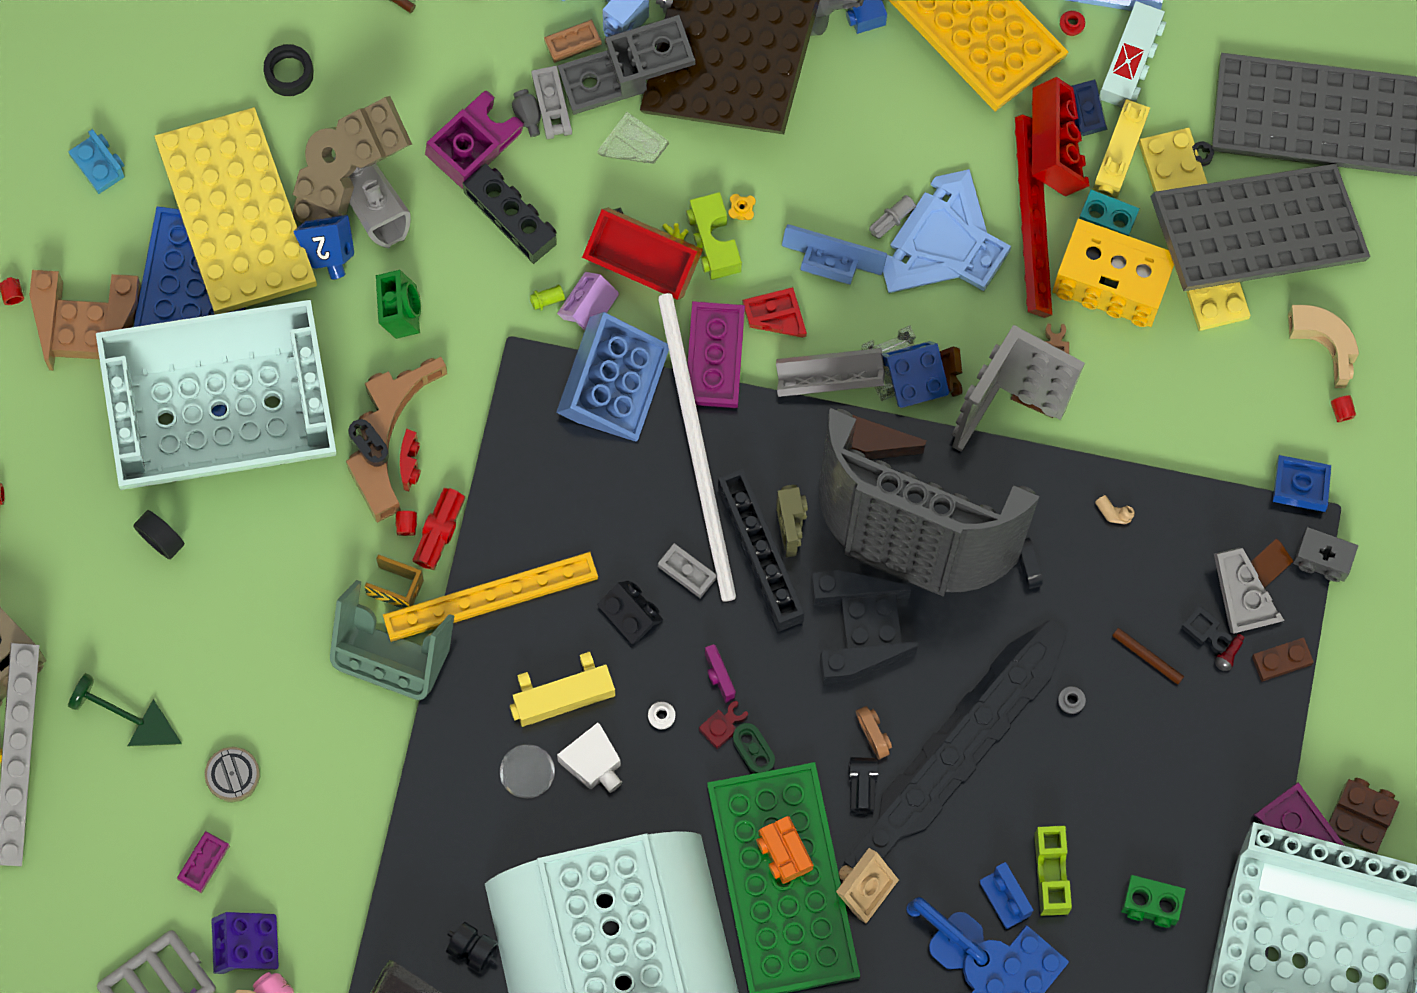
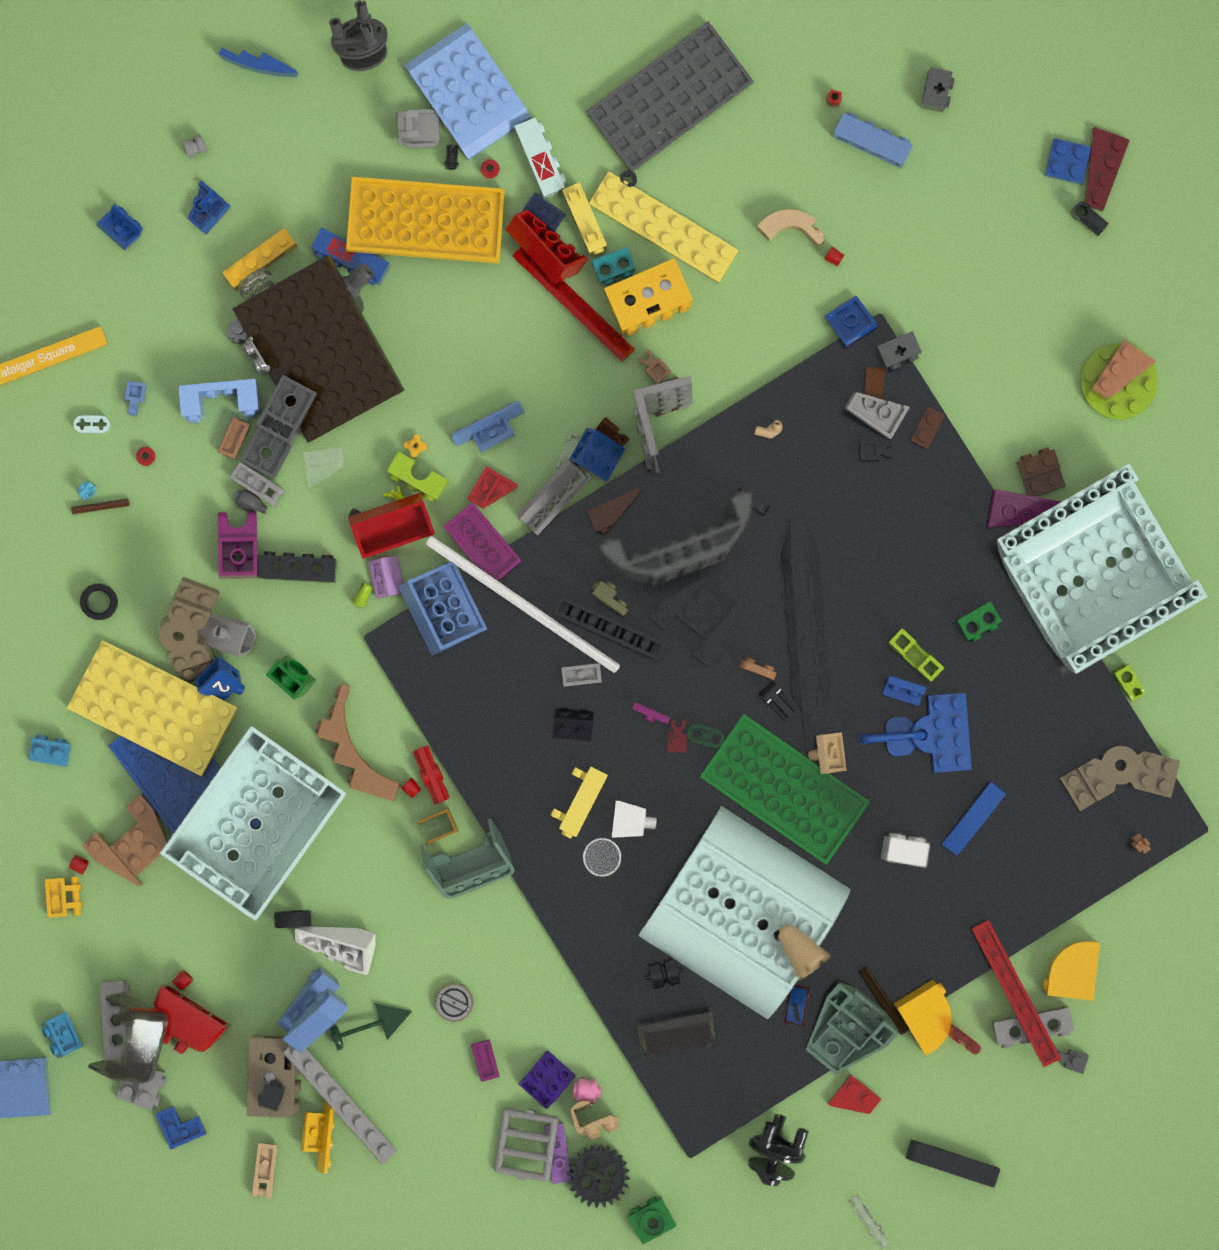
camera: 45 degrees left, 15 degrees up
(83, 634) = (312, 1010): none -> medium blue wedge
(184, 613) = (347, 945): none -> white wedge
(373, 439) = (351, 772): black beam -> none
(409, 466) = (383, 758): red slope -> none
(491, 596) = (493, 785): yellow tile -> none
(661, 723) = (642, 757): white plate -> none
(785, 850) = (773, 775): orange brick -> none
(892, 217) = (499, 375): light grey axle -> none
(945, 239) = (539, 360): light blue plate -> none
(1068, 707) = (836, 558): flat silver plate -> none
(1148, 656) = (857, 492): reddish brown bar -> none
(1225, 660) = (898, 457): dark red piece -> none
(1259, 227) = (701, 198): dark grey plate -> none

